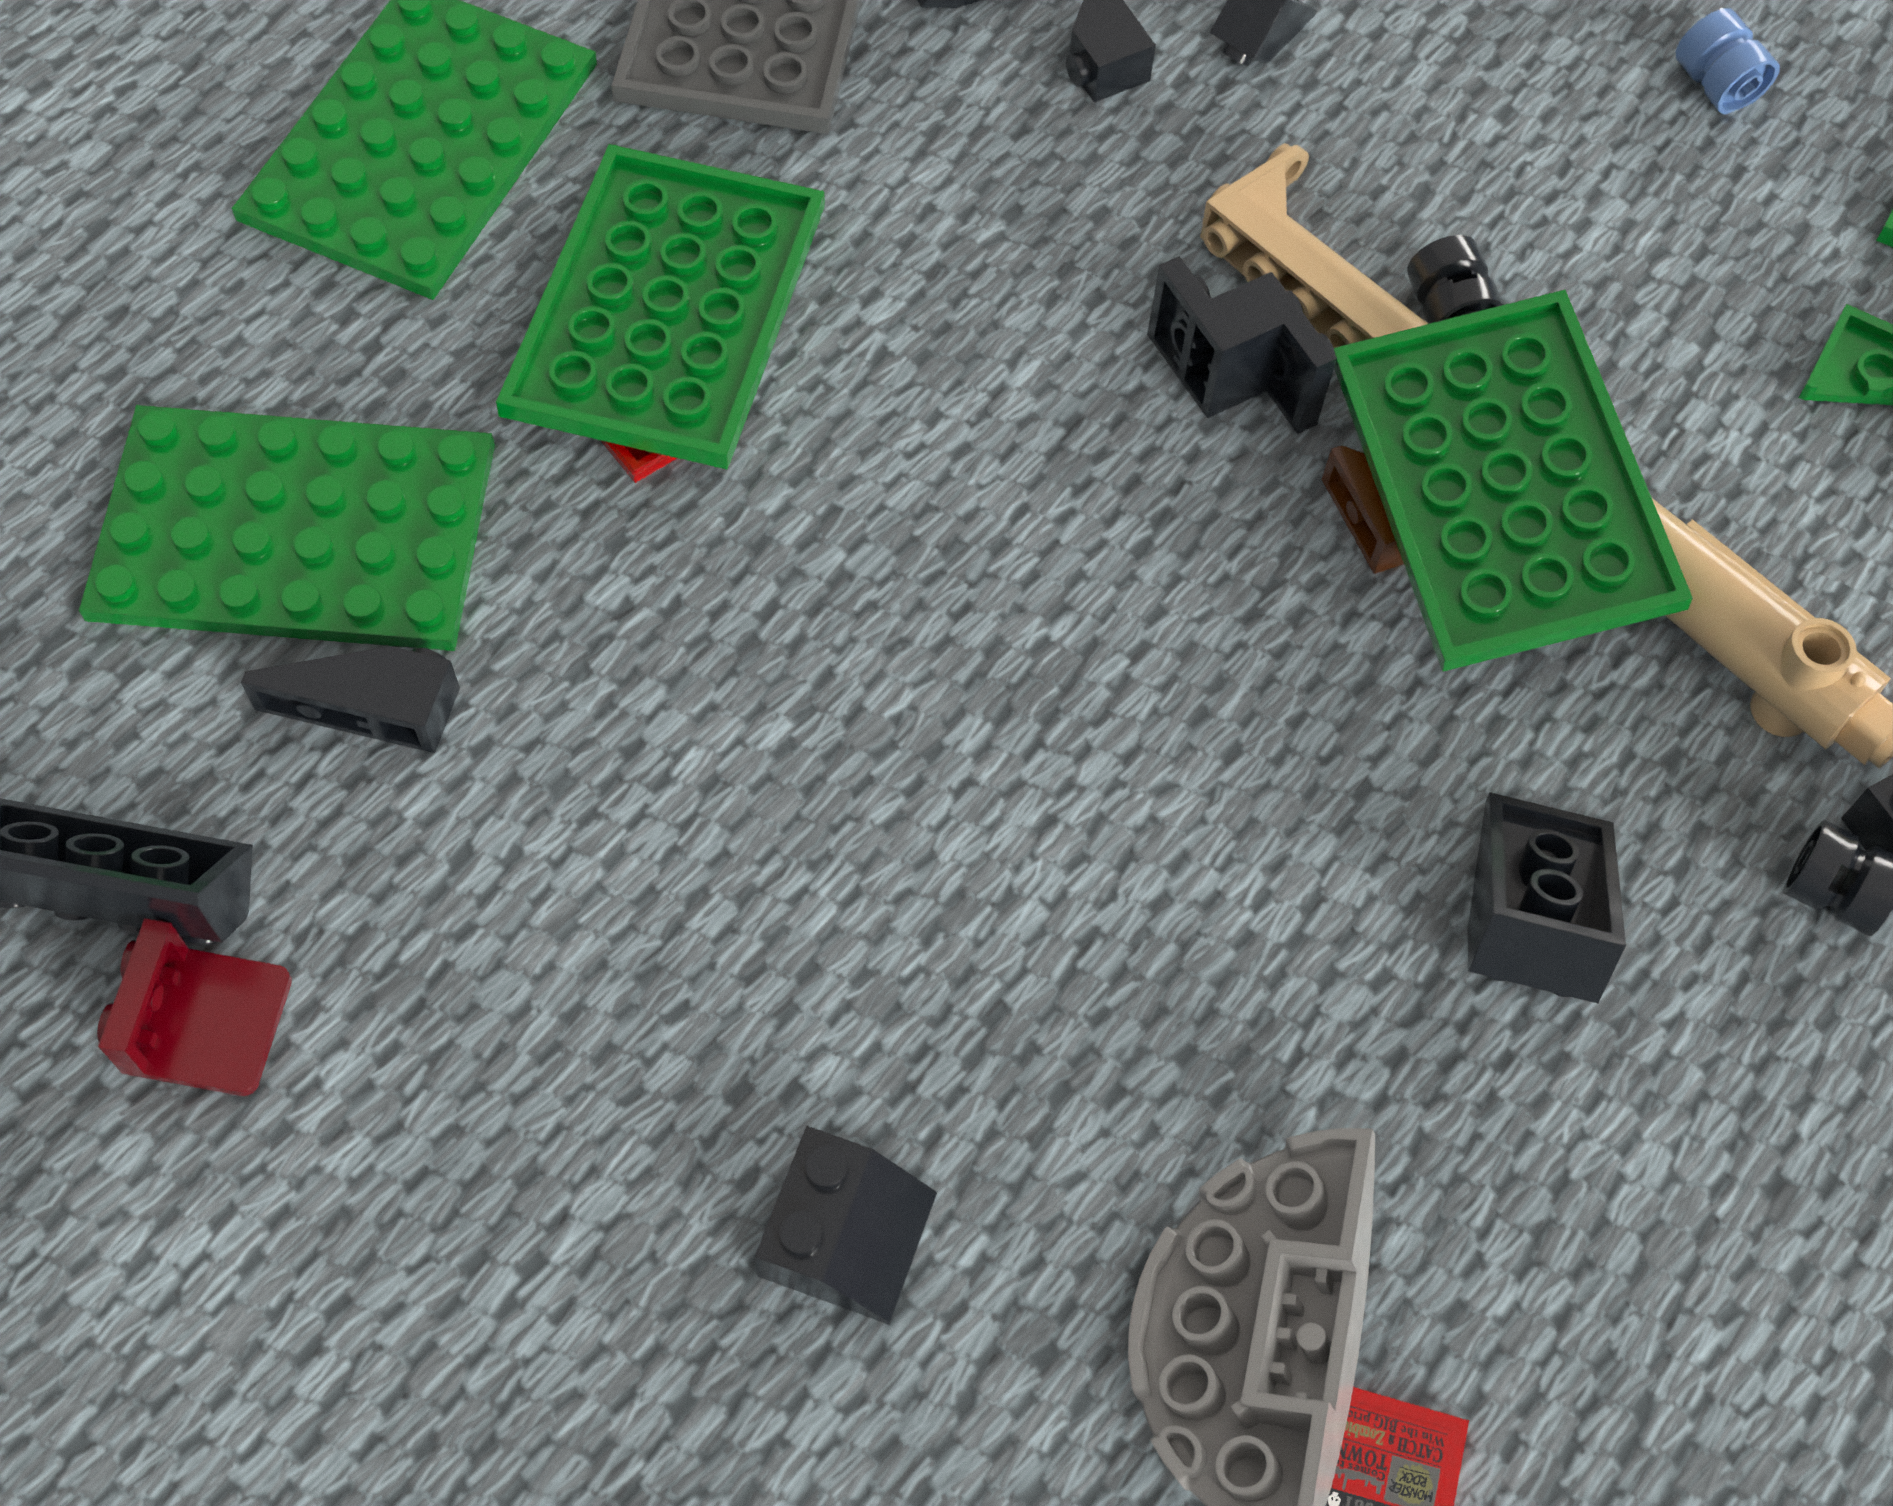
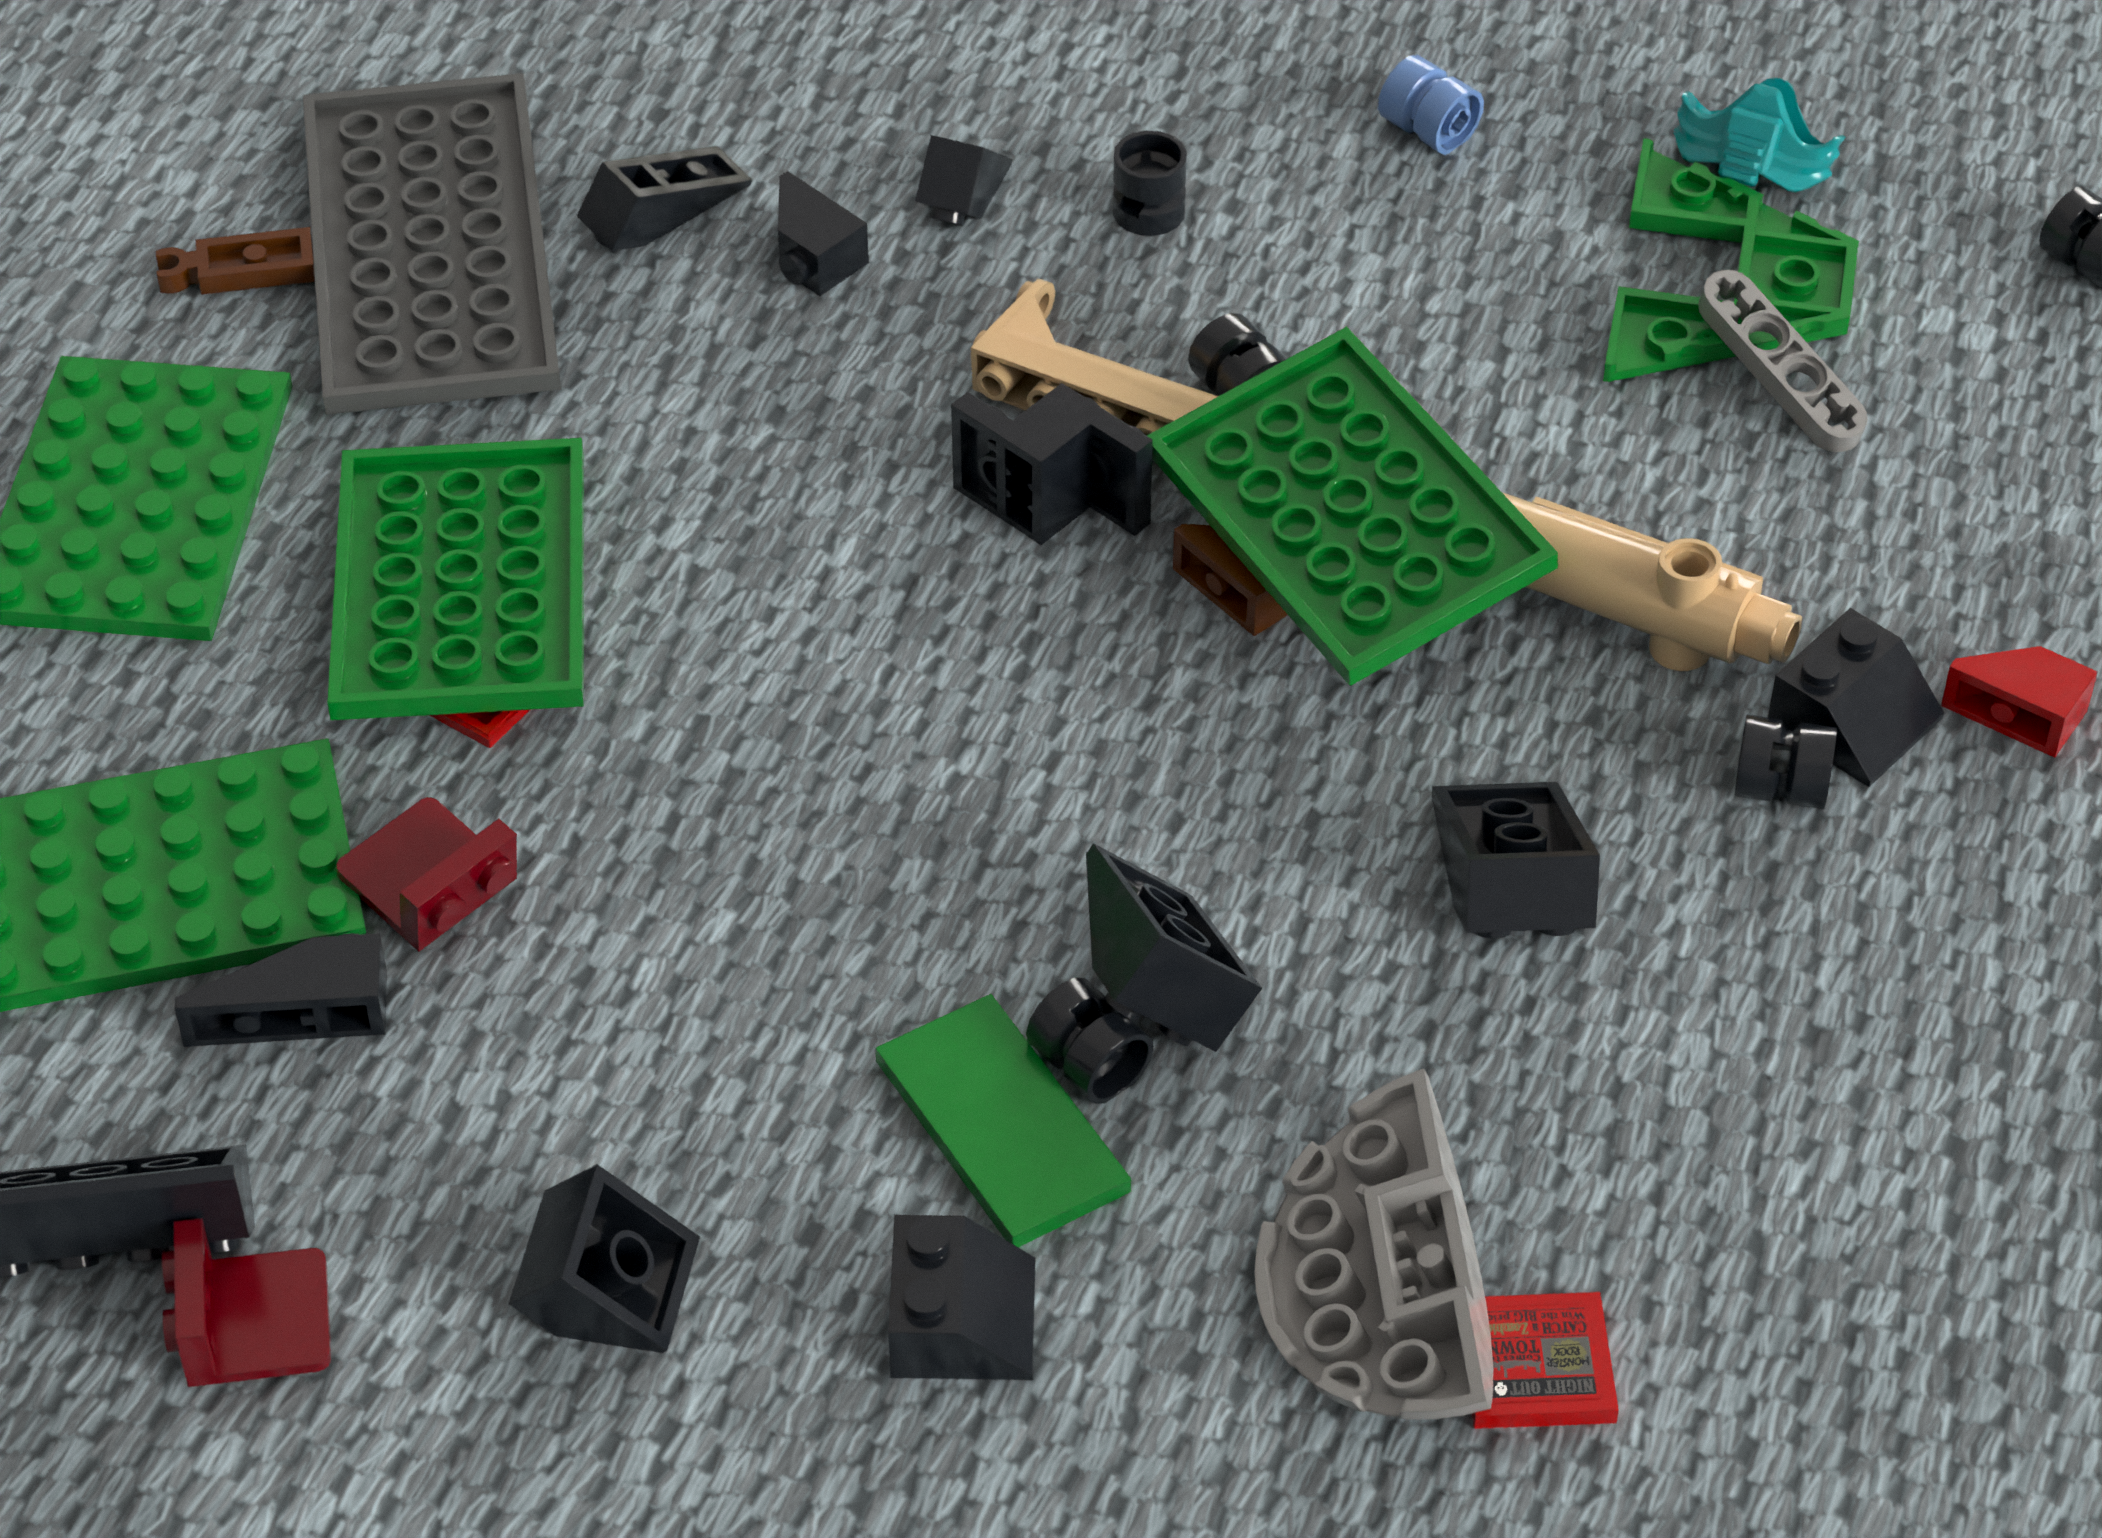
camera: 15 degrees left, 15 degrees down
(526, 599) = (429, 870): none -> dark red bracket
(532, 1076) = (604, 1264): none -> black slope
(958, 1032) = (1003, 1121): none -> green tile
(1068, 985) = (1089, 1040): none -> black wheel
(1164, 907) = (1163, 954): none -> black slope
(1433, 72) = (1149, 183): none -> black wheel

